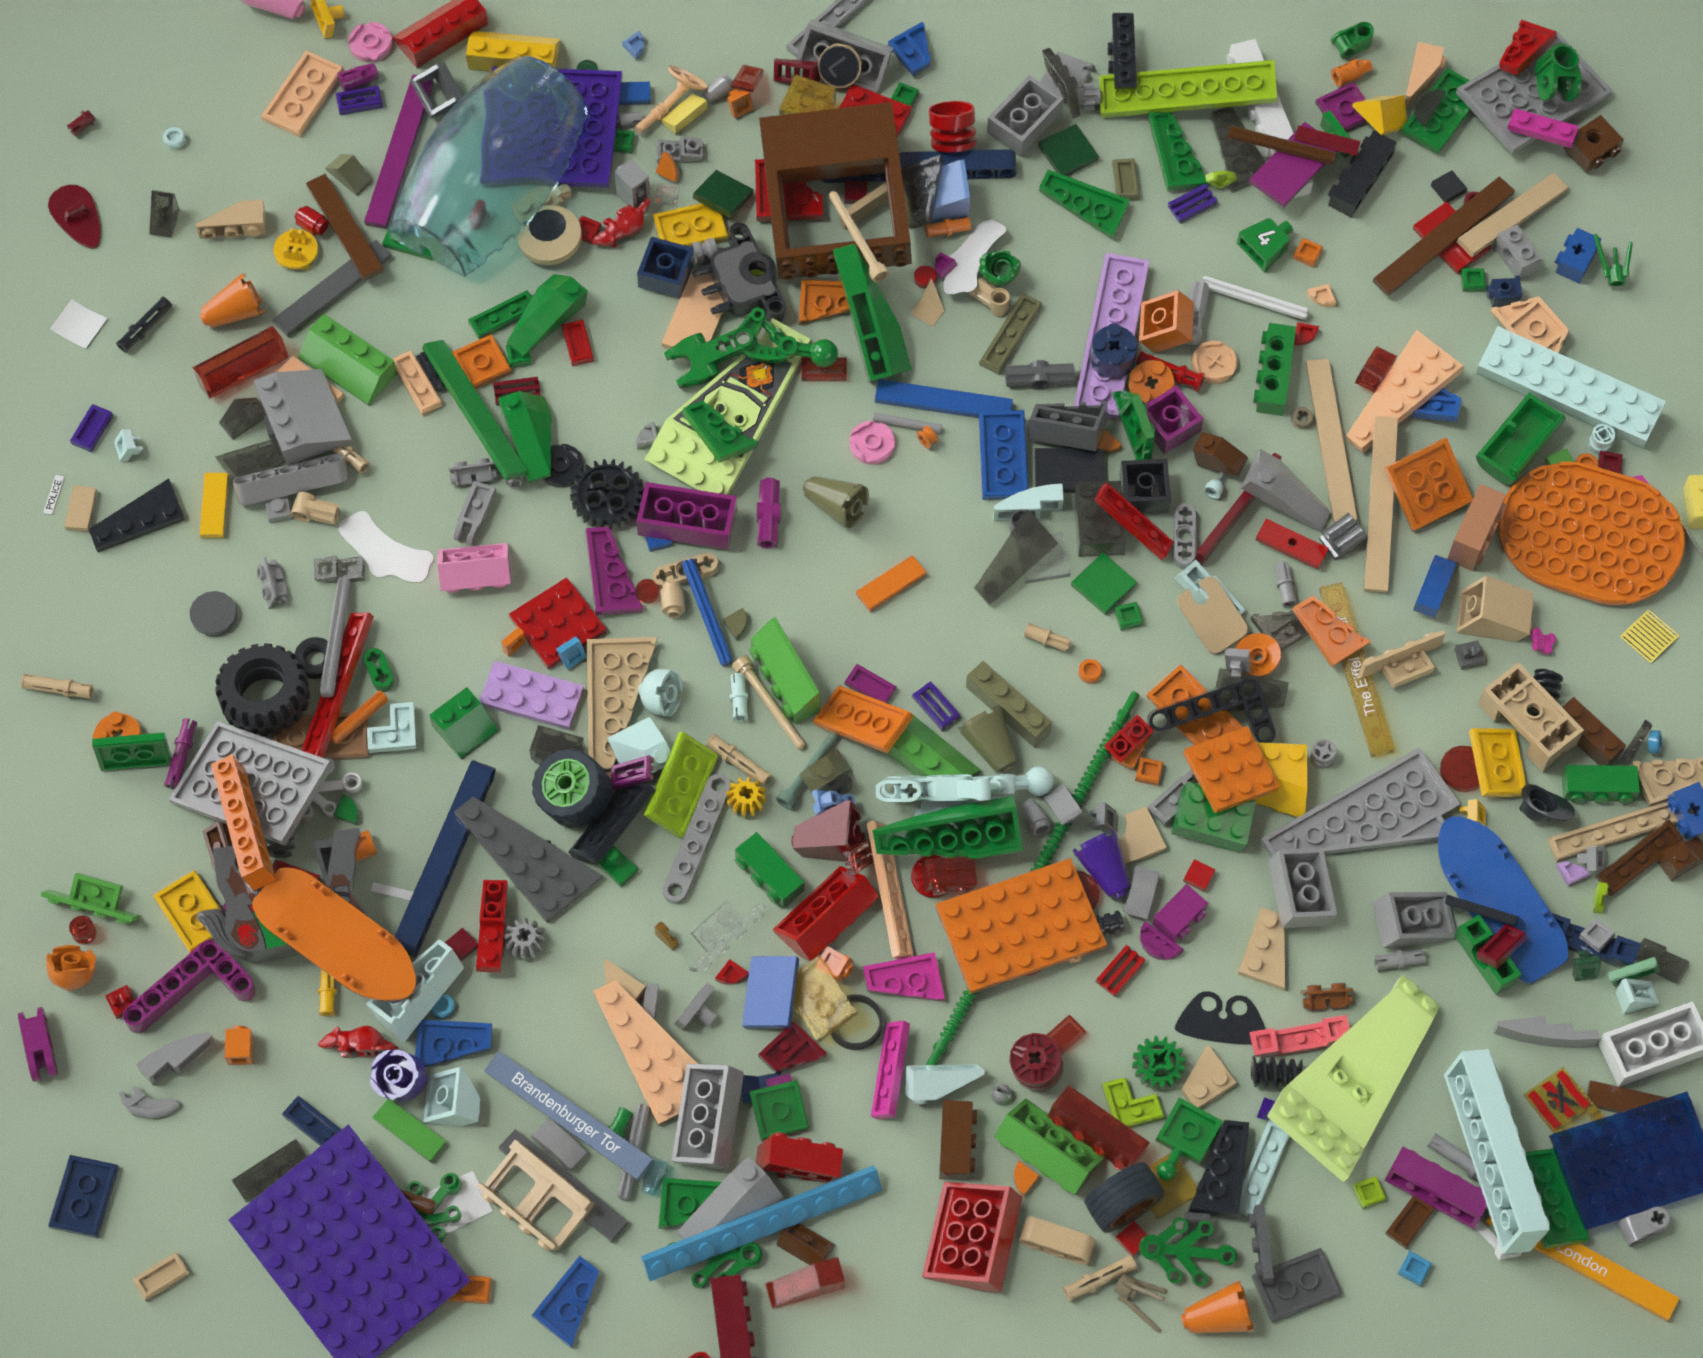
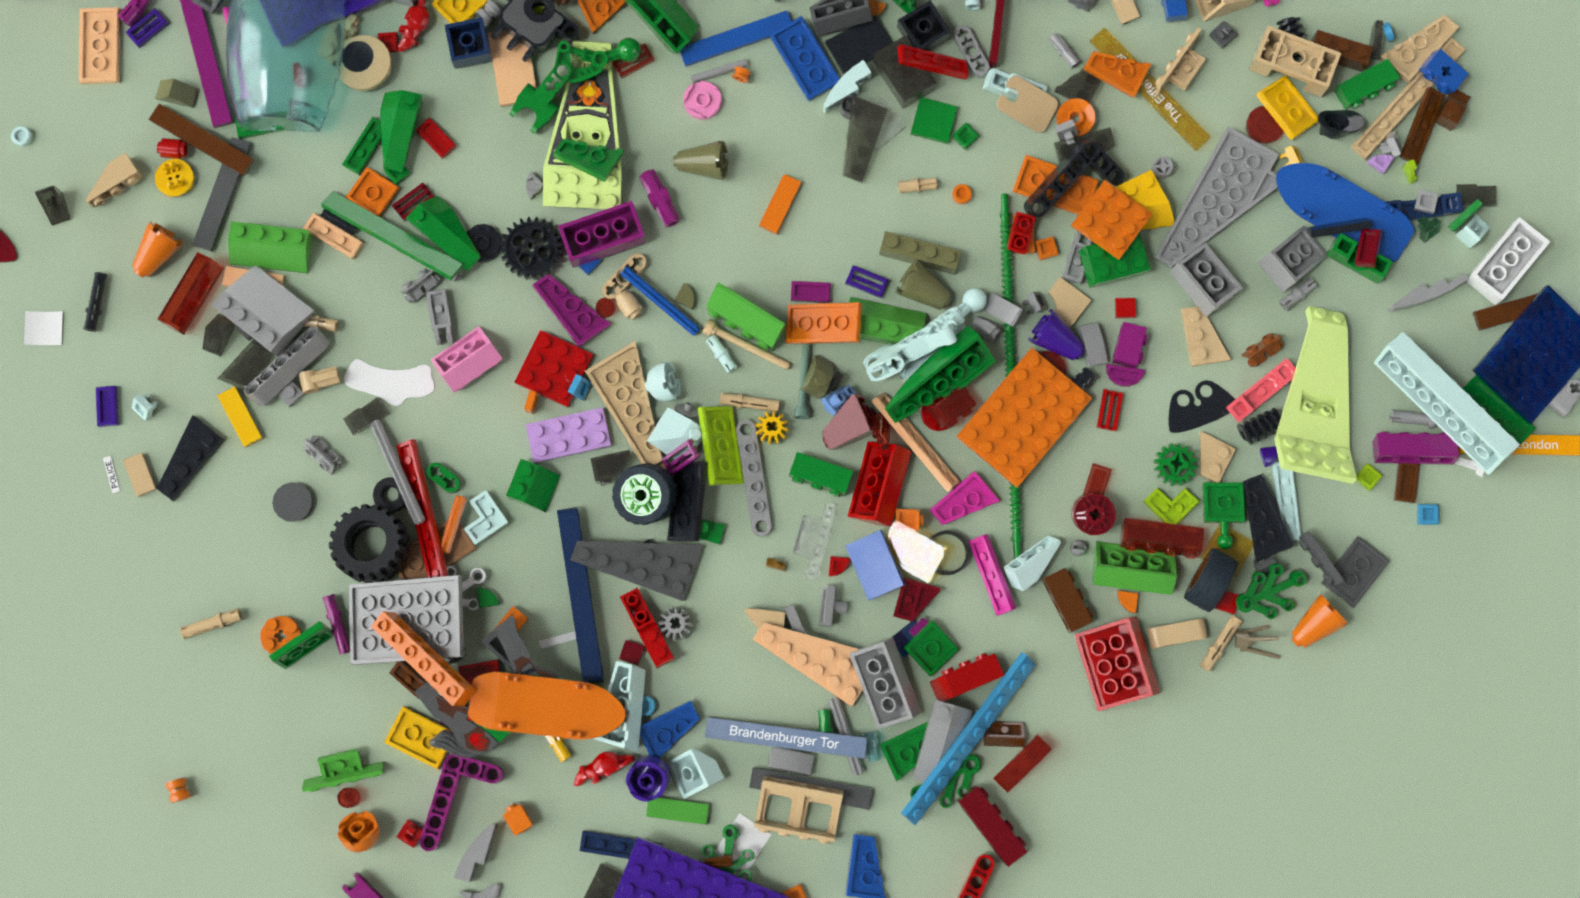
camera: 30 degrees left, 15 degrees up
(668, 732) = (687, 410): none -> light grey piece
(1280, 537) = (1064, 16): red tile -> none
(1560, 1101) = (1463, 337): flag -> none

